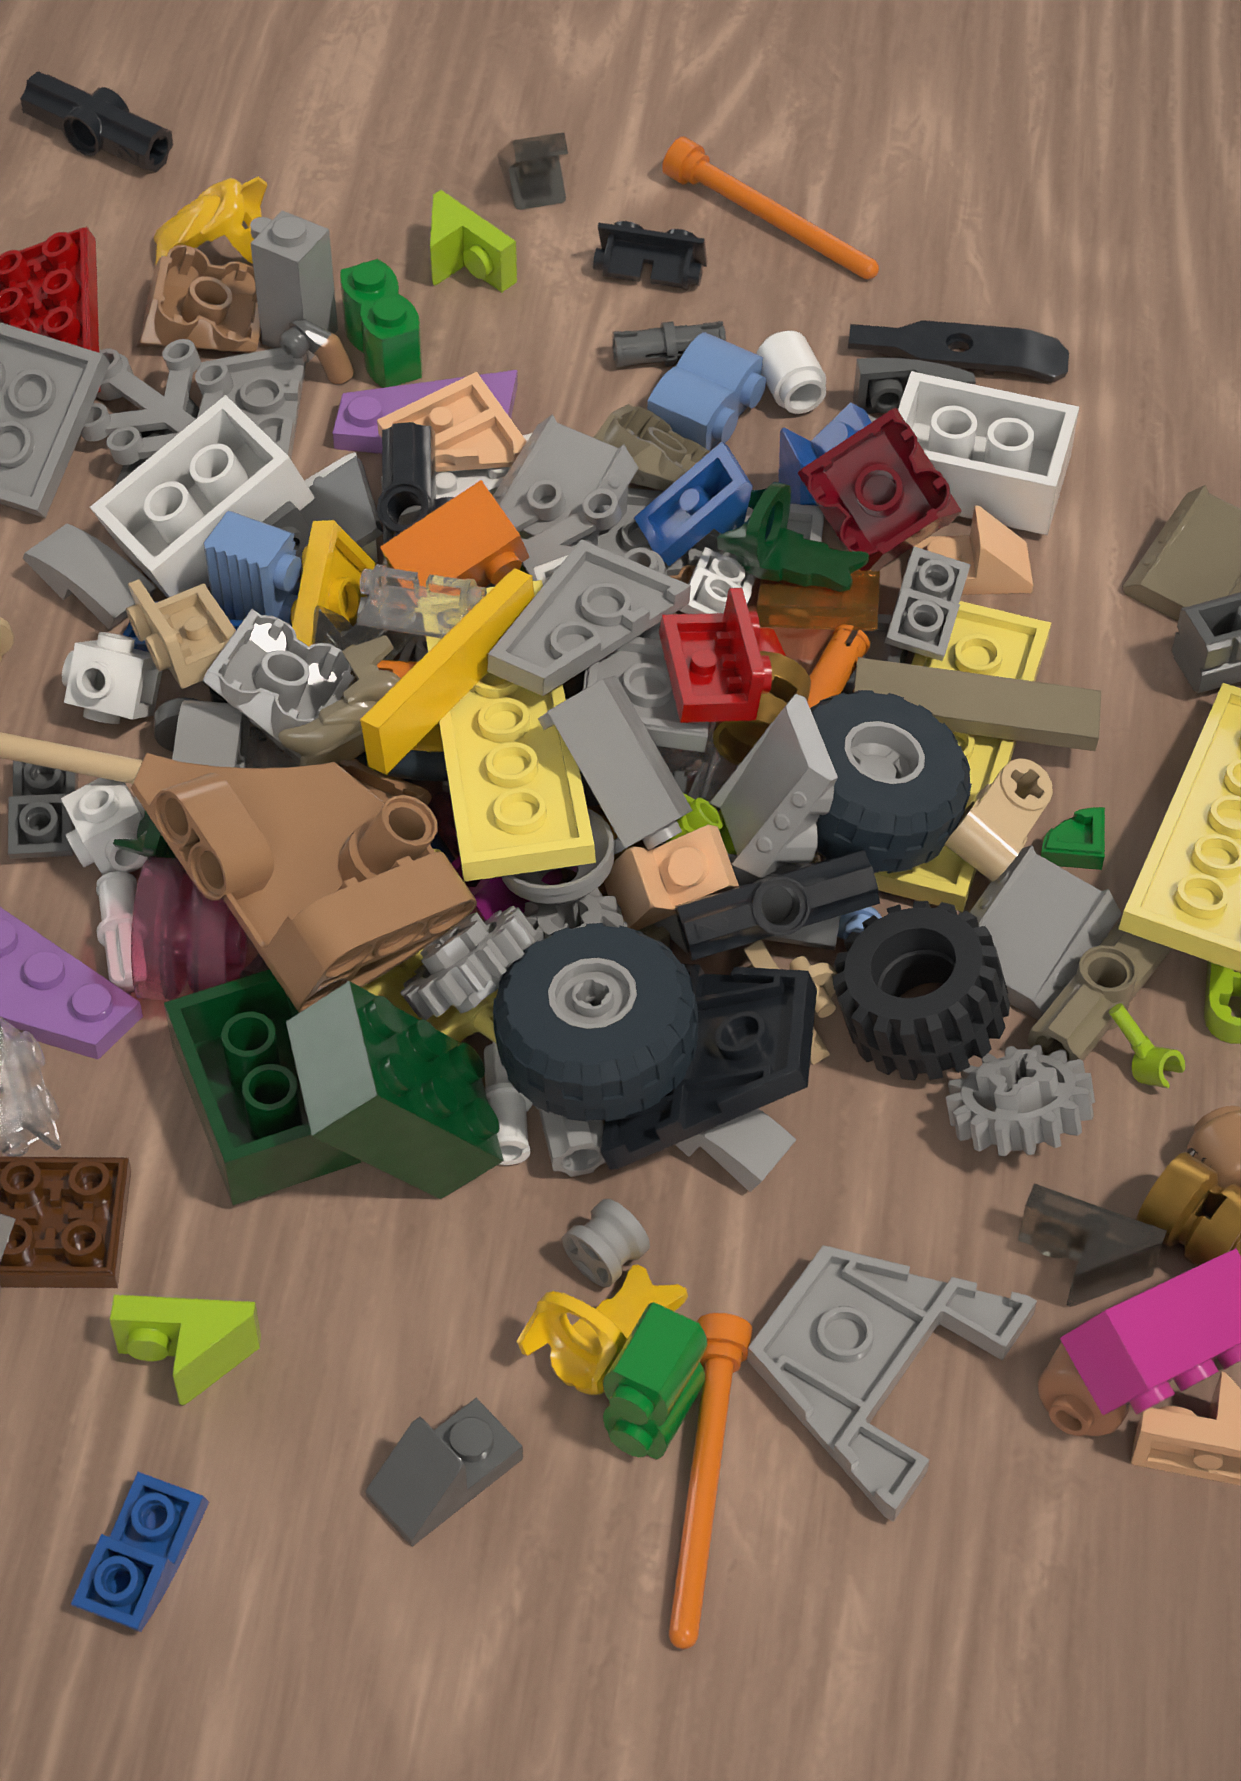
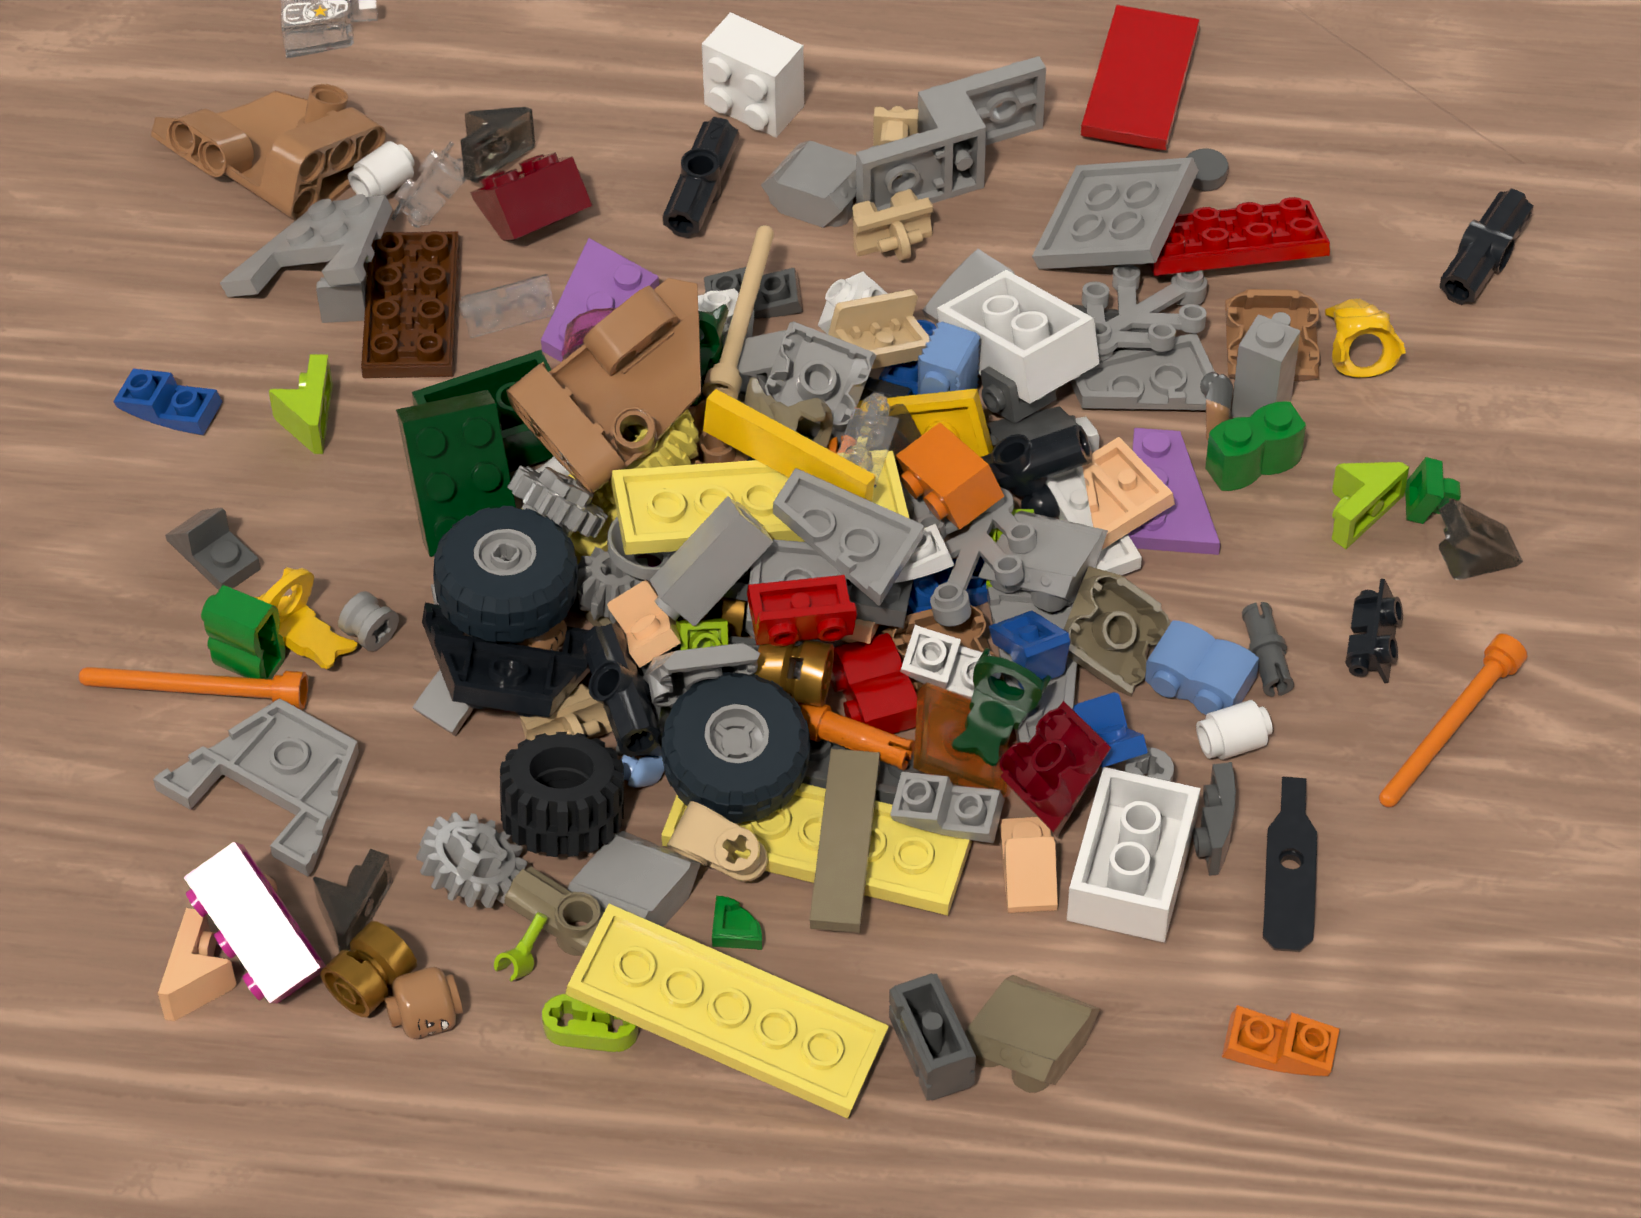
camera: 90 degrees right, 0 degrees up
(462, 184) = (1428, 490): none -> green tile
(1192, 370) = (1286, 1046): none -> orange slope

